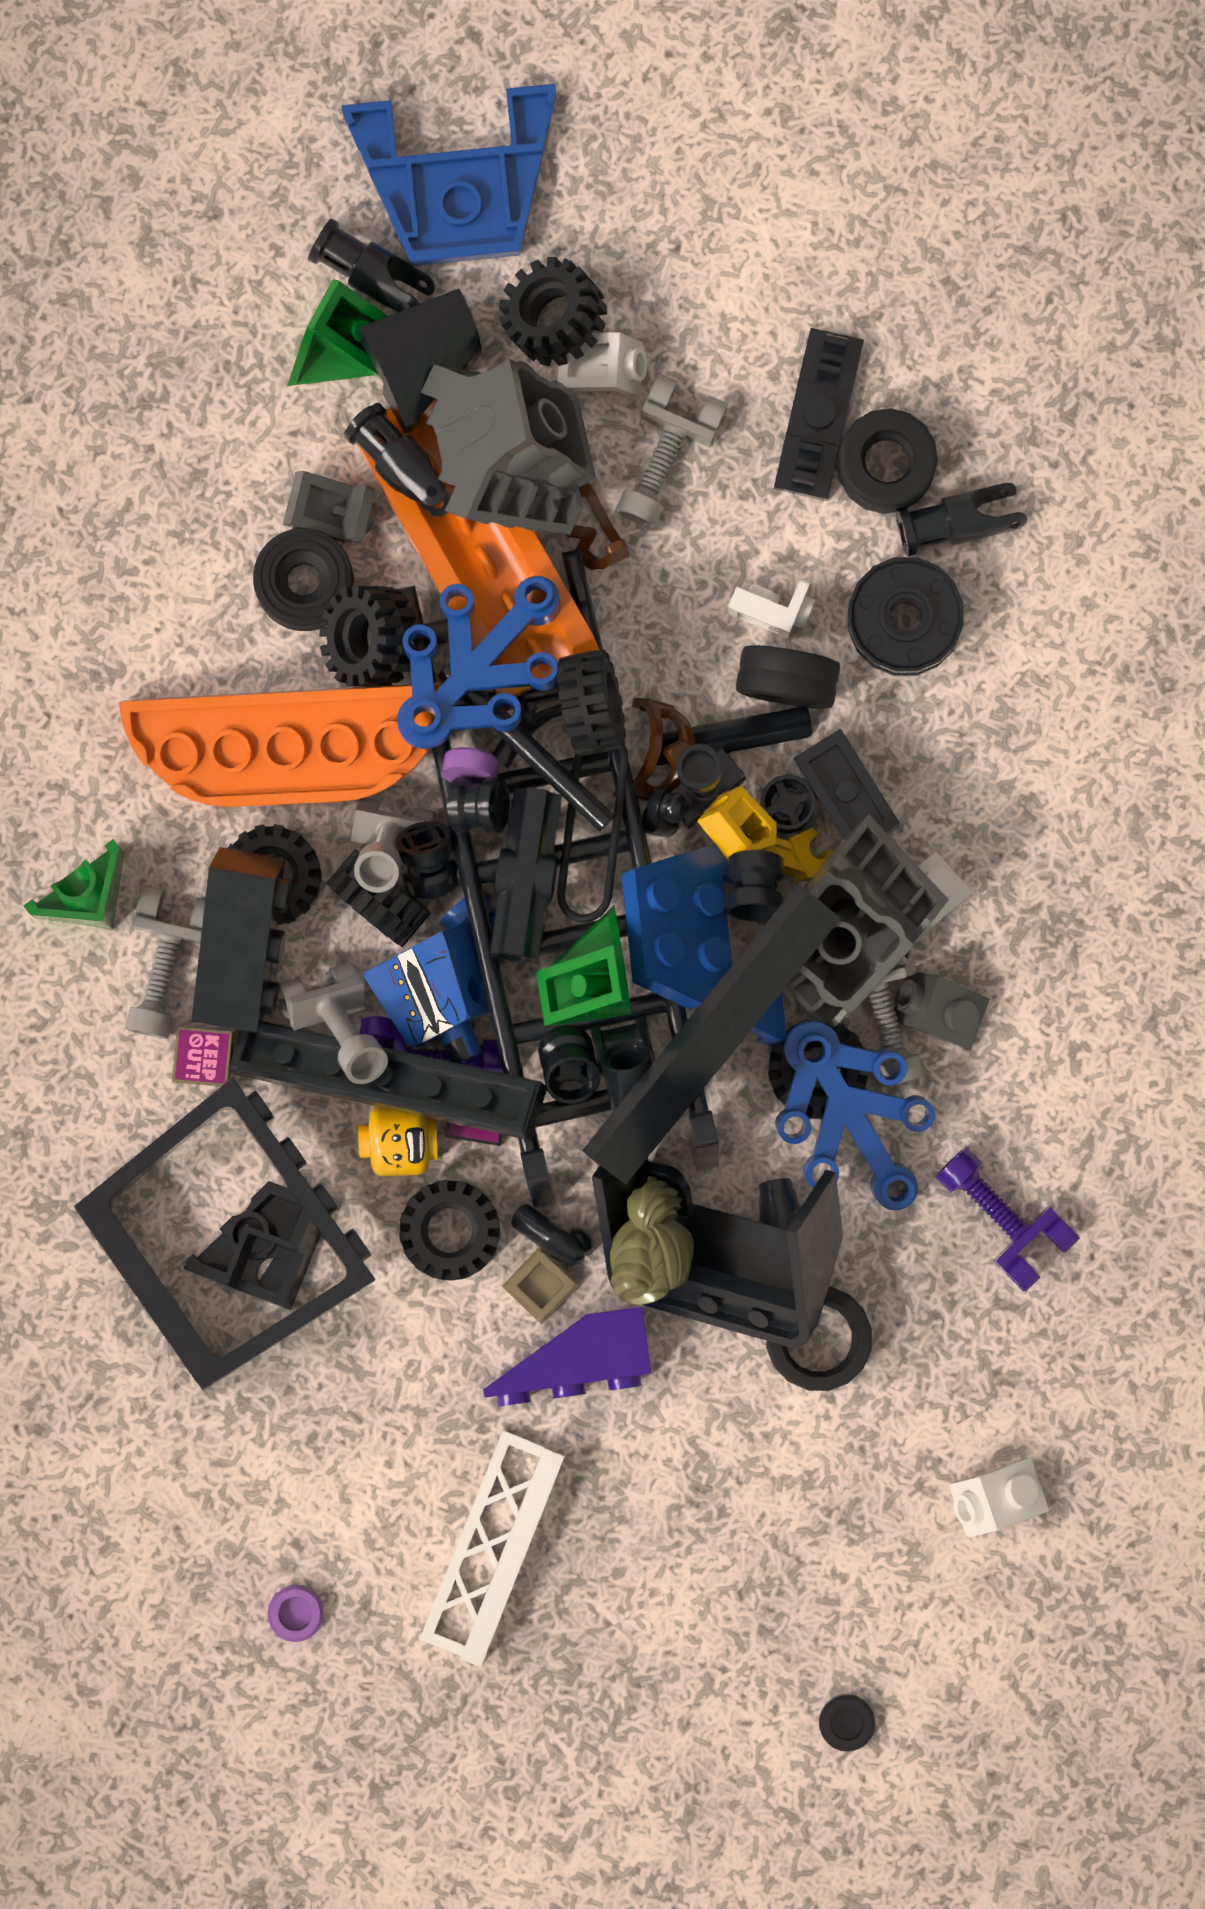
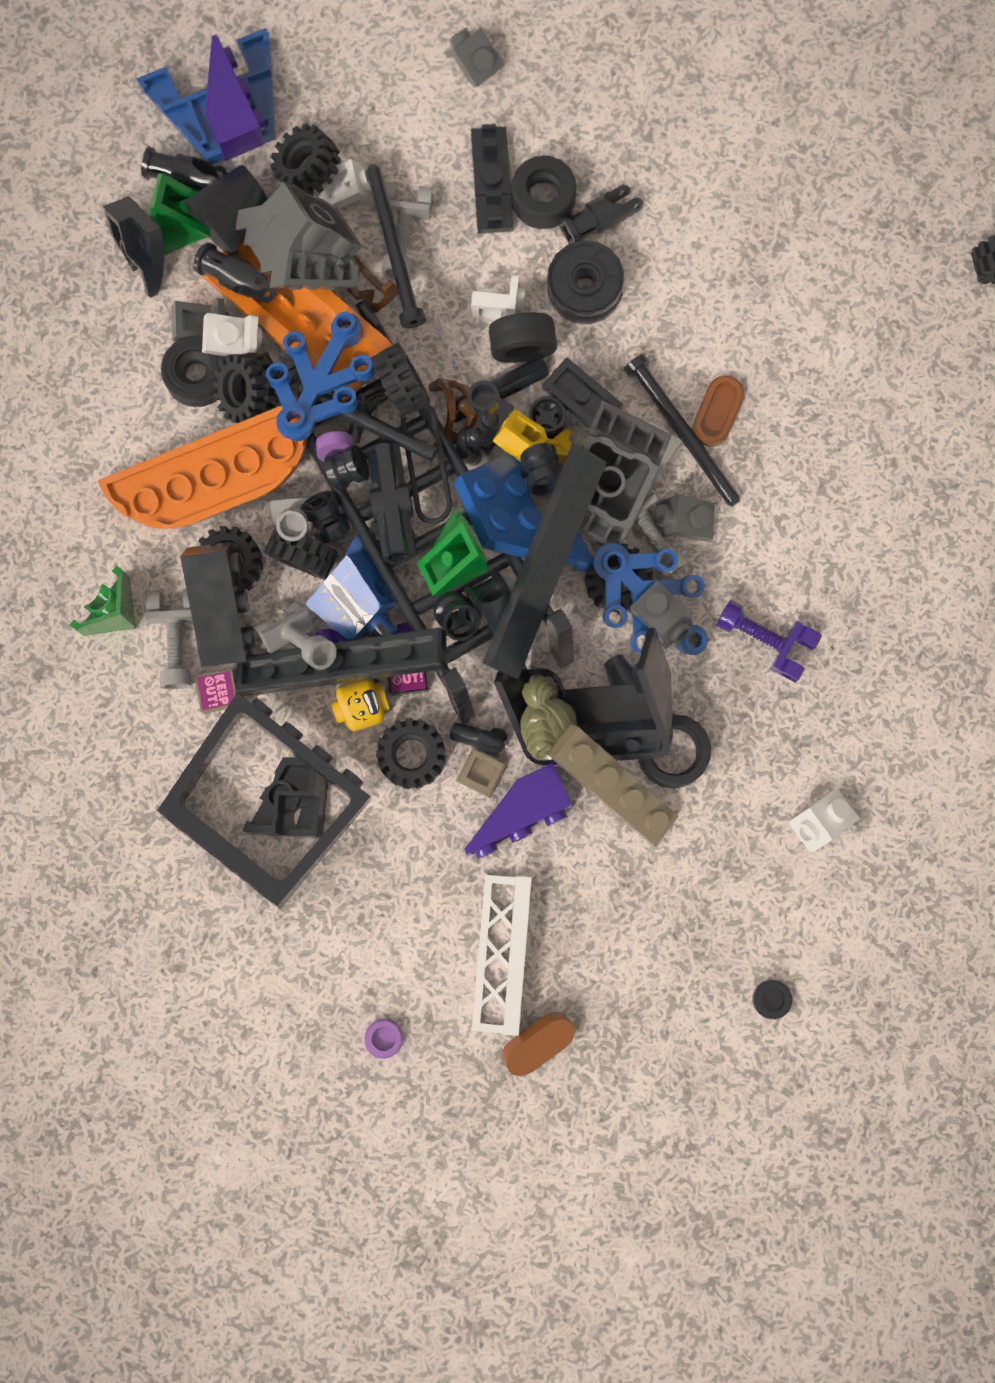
camera: 15 degrees left, 5 degrees down
(275, 358) = (138, 240): none -> black slope
(370, 550) = (230, 335): none -> white bracket
(462, 207) = (227, 109): none -> dark purple slope
(505, 1685) = (538, 1043): none -> dark orange tile
(637, 598) = (412, 315): none -> black bar
(716, 1364) = (612, 784): none -> dark tan plate
(849, 215) = (474, 55): none -> dark grey bracket
(860, 1145) = (664, 612): none -> dark grey bracket
(978, 875) = (638, 368): none -> black bar
(1039, 863) = (718, 410): none -> dark orange tile

